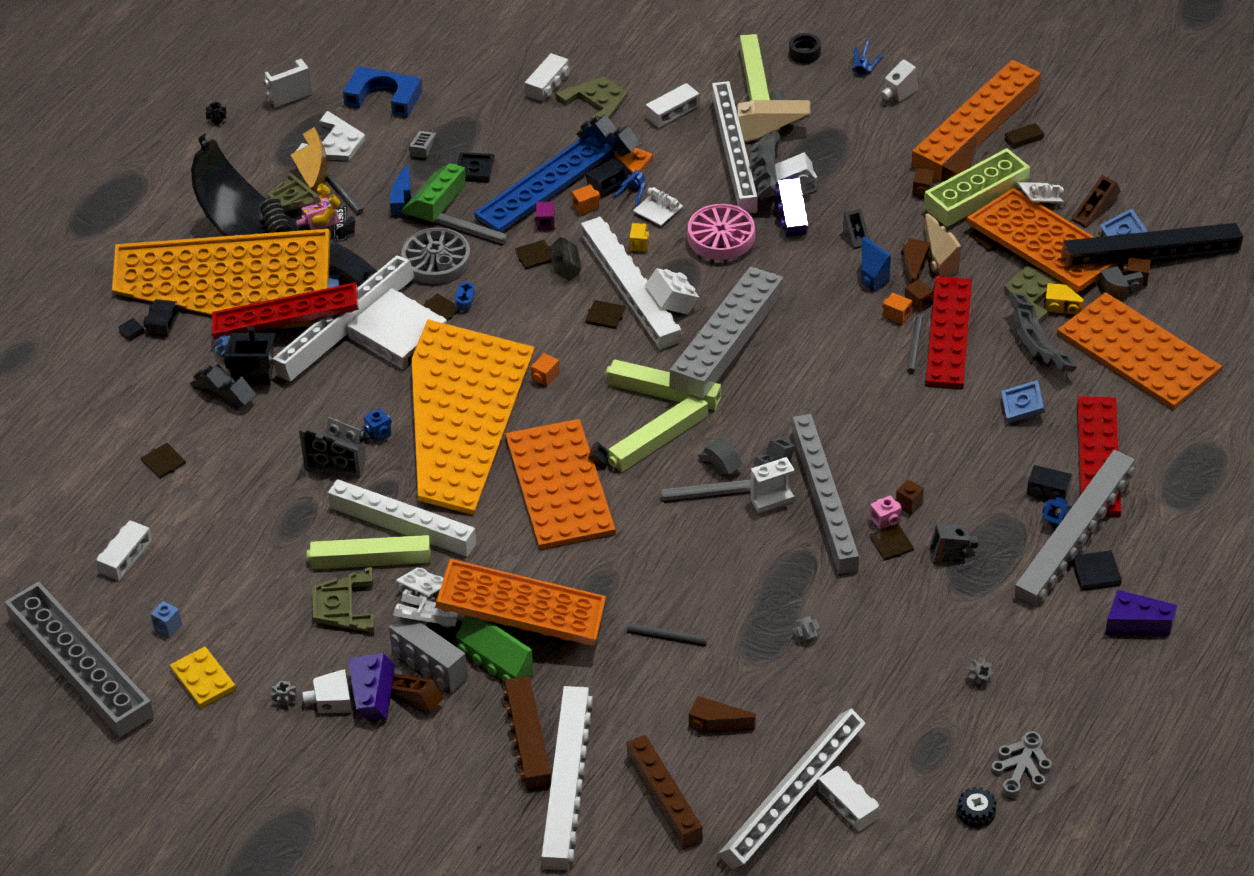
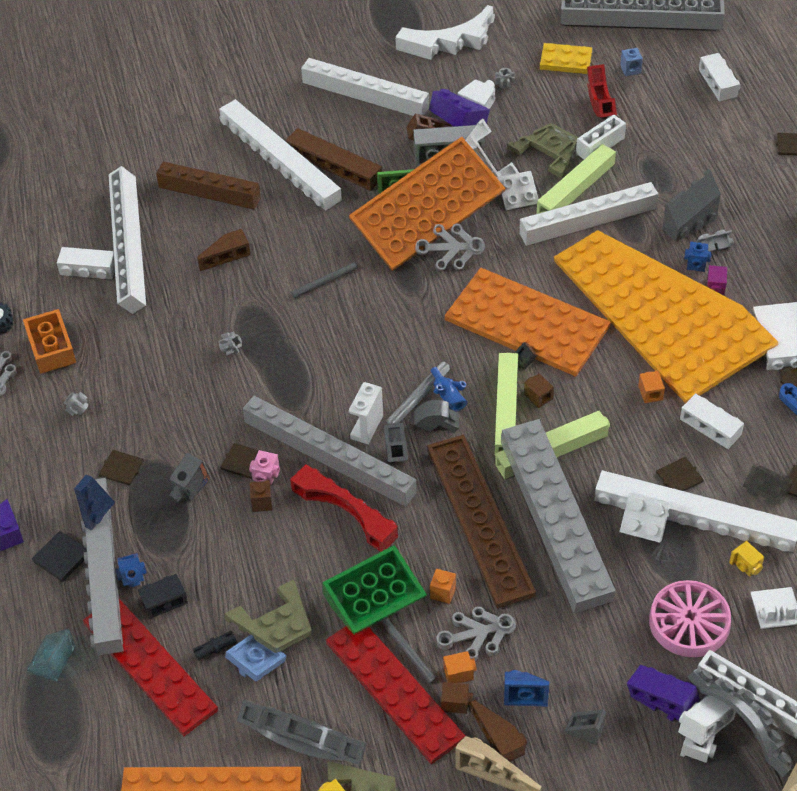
camera: 135 degrees right, 5 degrees up
(244, 605) = (598, 92): none -> red arch
(267, 772) = (448, 40): none -> white arch
(300, 566) = (606, 133): none -> white brick
(391, 400) = (717, 278): none -> magenta brick
(411, 783) = (365, 87): none -> white brick
(538, 321) = (711, 421): none -> white brick
(544, 564) = (452, 246): none -> light grey plant
(623, 423) = (538, 390): none -> reddish brown brick
(691, 463) = (447, 389): none -> blue piece
(772, 380) = (481, 522): none -> reddish brown plate
(840, 314) = (478, 631): none -> light grey plant
(851, 355) = (443, 586): none -> orange brick
(863, 477) = (315, 487): none -> red arch
(902, 381) = (372, 590): none -> green slope
(953, 738) = (49, 341): none -> orange brick
(985, 407) = (279, 627): none -> olive wing
(989, 604) = (121, 467): none -> dark brown piece
(1042, 433) = (214, 645): none -> black pin
(1051, 539) = (92, 501): none -> dark blue wing
(1164, 501) = (52, 655): none -> clear light blue slope

